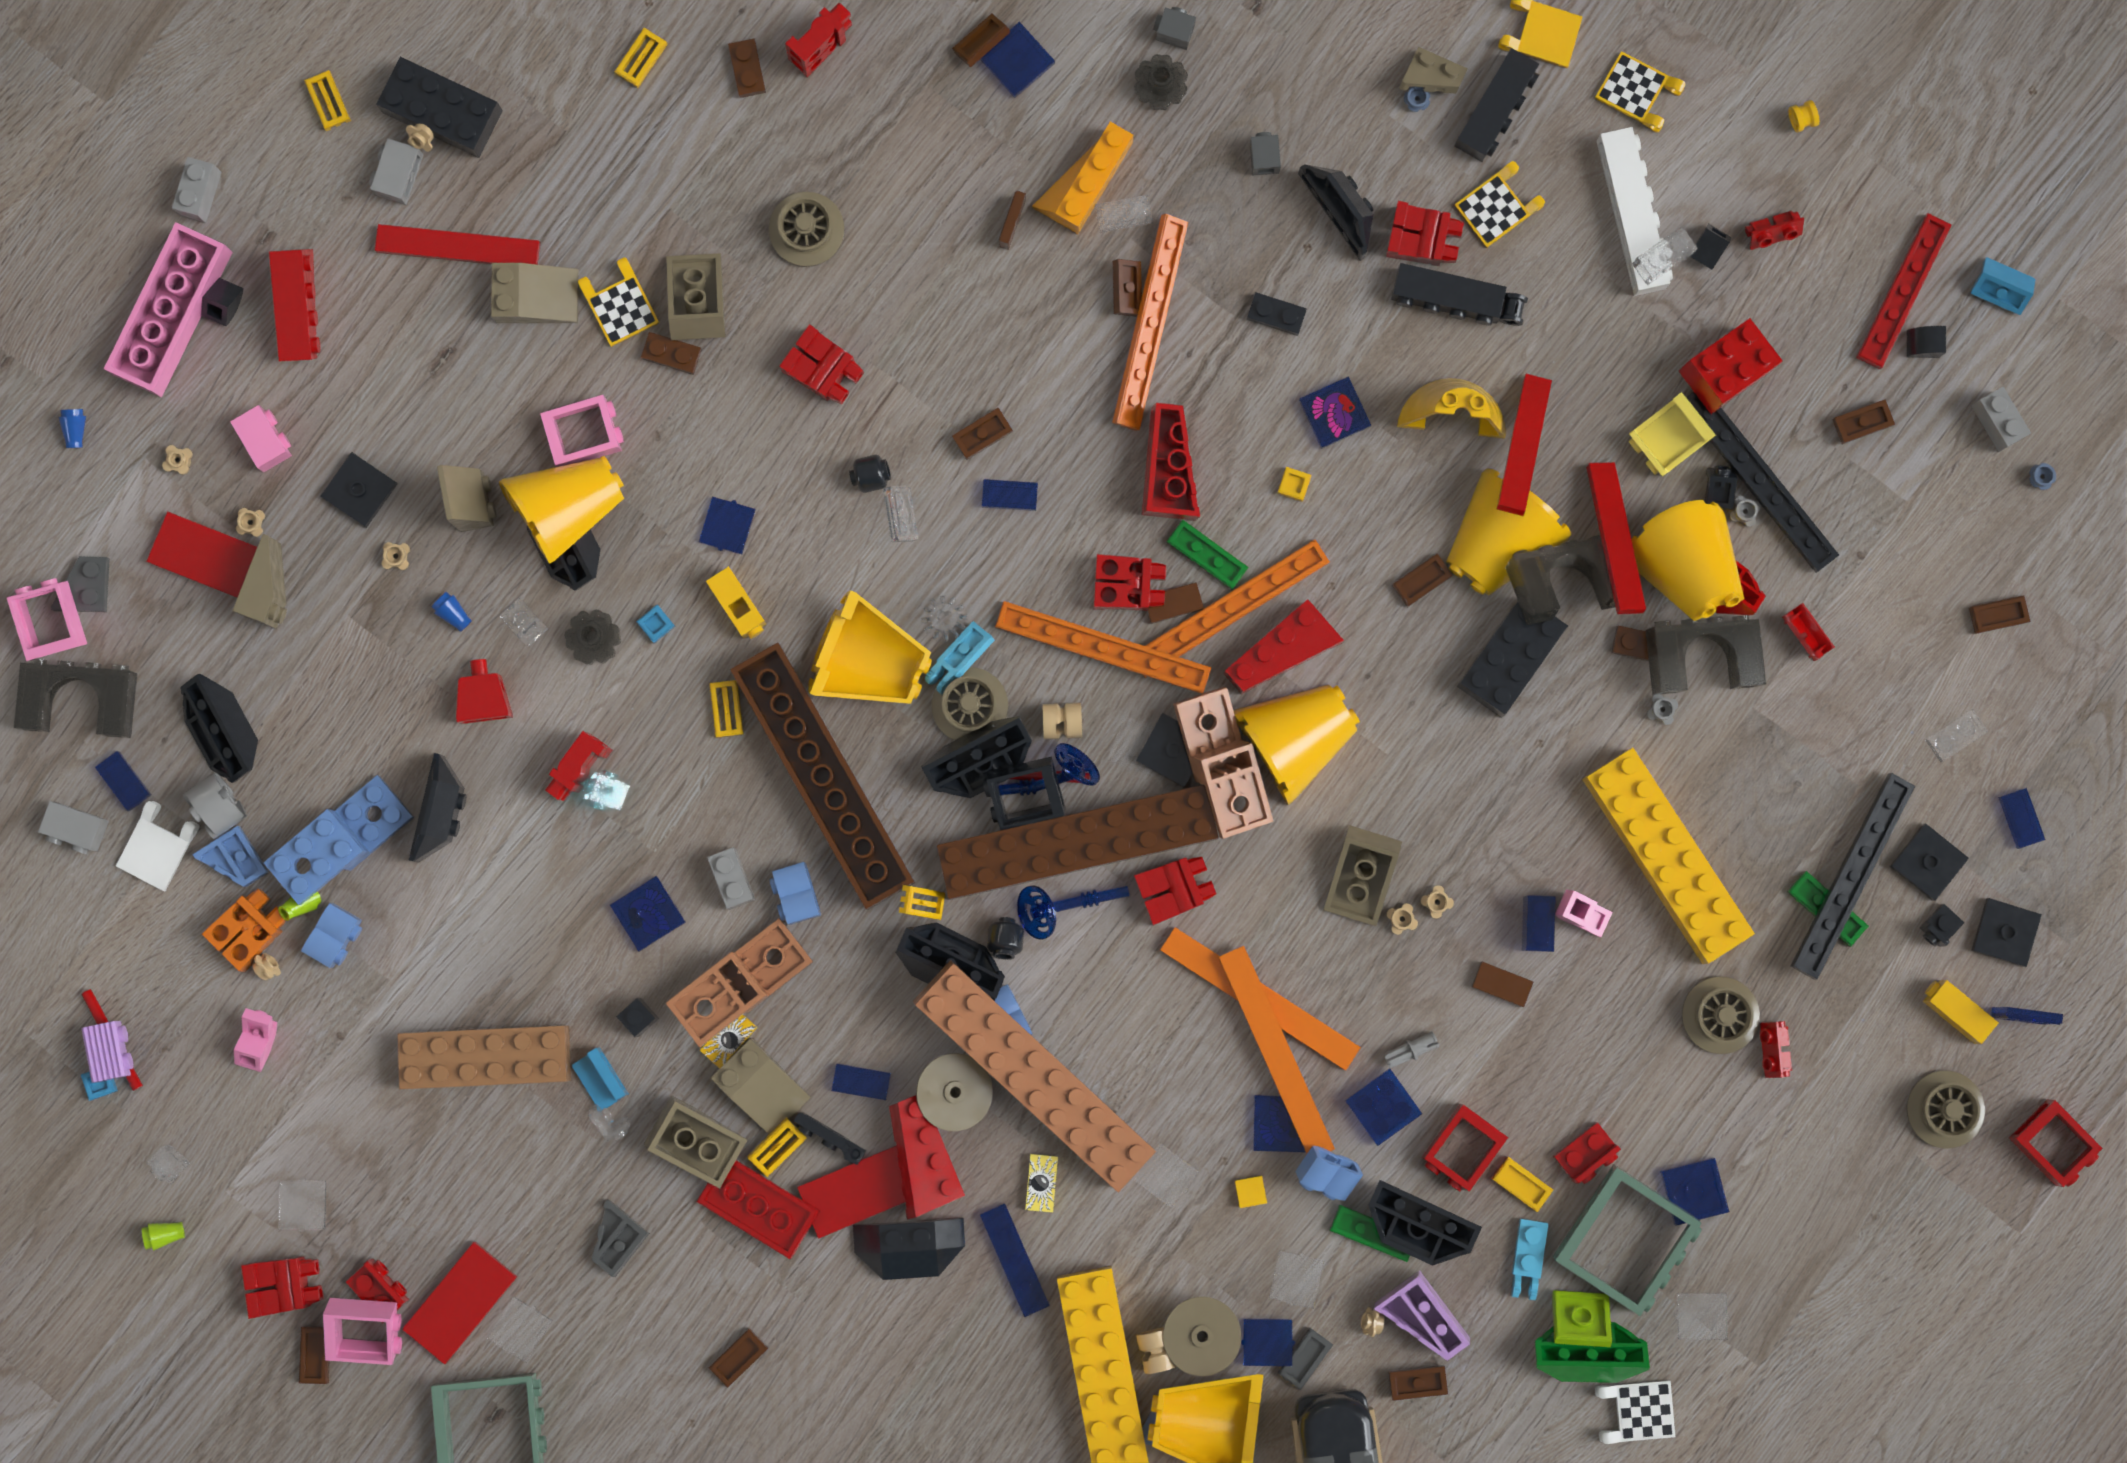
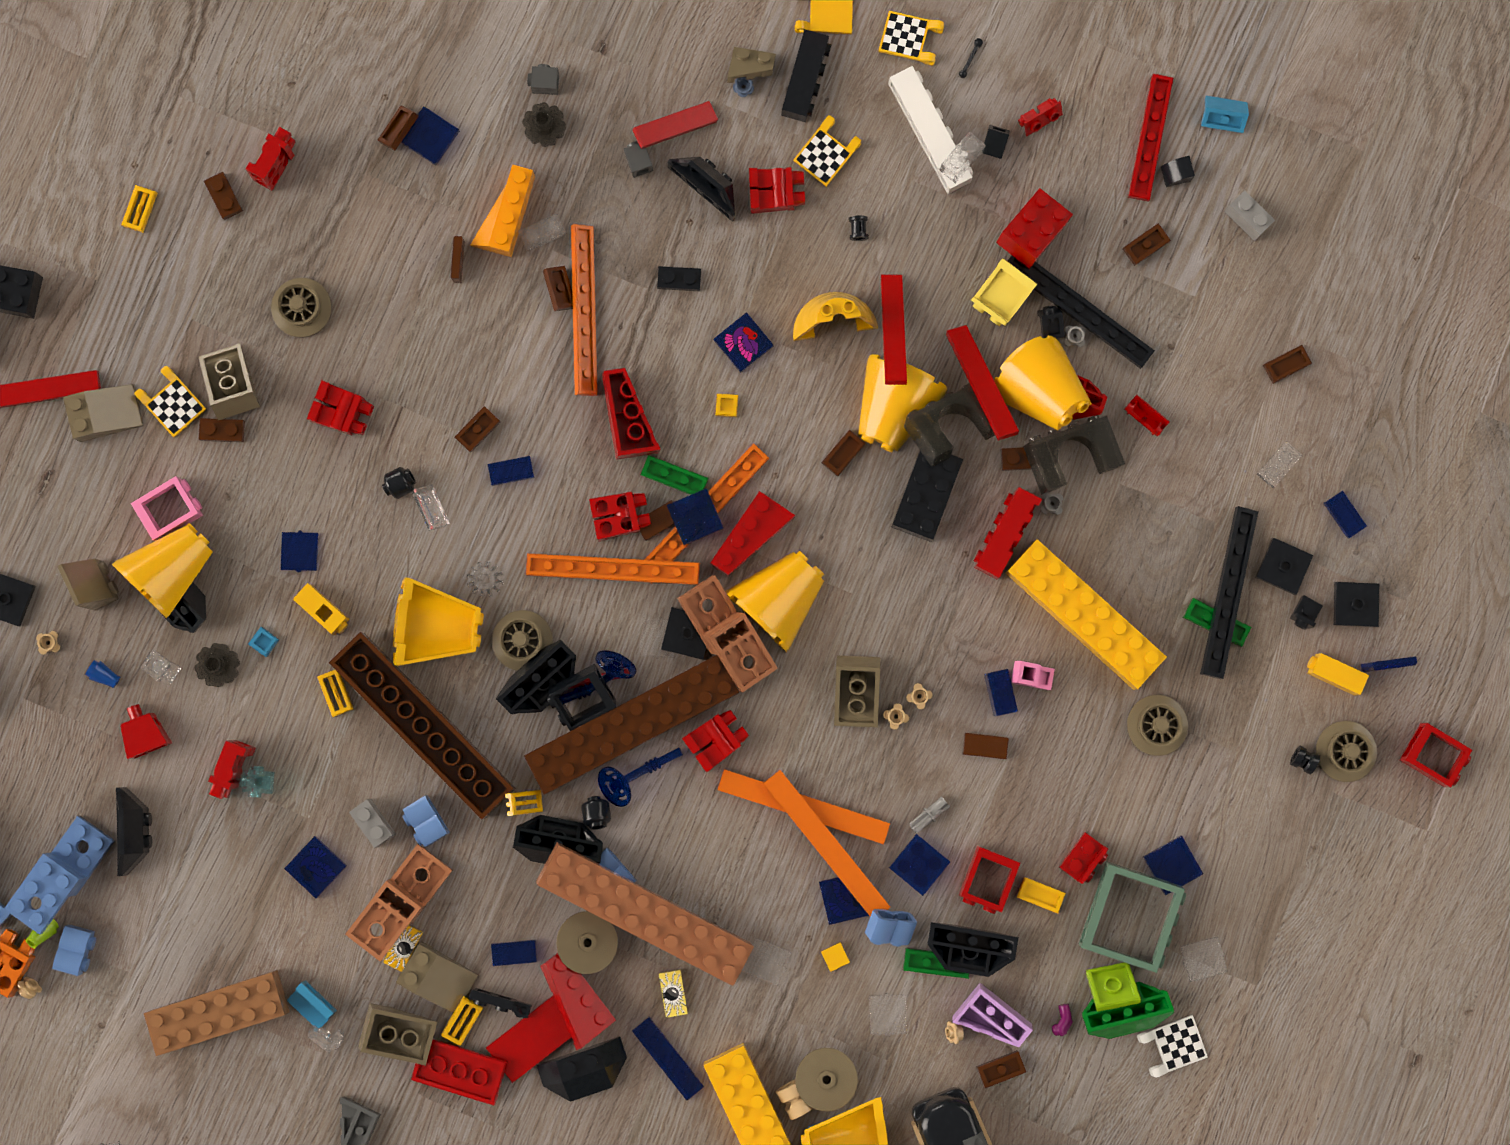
camera: 20 degrees left, 0 degrees up
(256, 1040) = (35, 1047): bright pink brick -> none
(637, 1017) = (327, 950): black brick -> none
(959, 656) = (504, 605): medium azure hinge -> none
(1062, 720) = (596, 634): tan wheel -> none
(1220, 610) = (695, 516): none -> clear blue plate
(1268, 1342) = (878, 1069): clear blue piece -> none
(1306, 1358) = (910, 1073): dark grey tile -> none
(1321, 124) = (675, 125): none -> red tile
(1449, 294) = (806, 229): black brick -> none
(1511, 1347) = (1065, 1022): none -> magenta arm
(1529, 1255) = (1060, 948): medium azure hinge -> none
(1597, 730) = (1006, 532): none -> red wedge
(1720, 120) = (977, 44): none -> black hinge
(1773, 1036) = (1208, 750): red hinge -> none
(1803, 116) = (1040, 24): yellow wheel -> none
(1891, 1106) = (1305, 760): none -> black wheel
(2049, 476) = (1296, 246): sand blue plate -> none

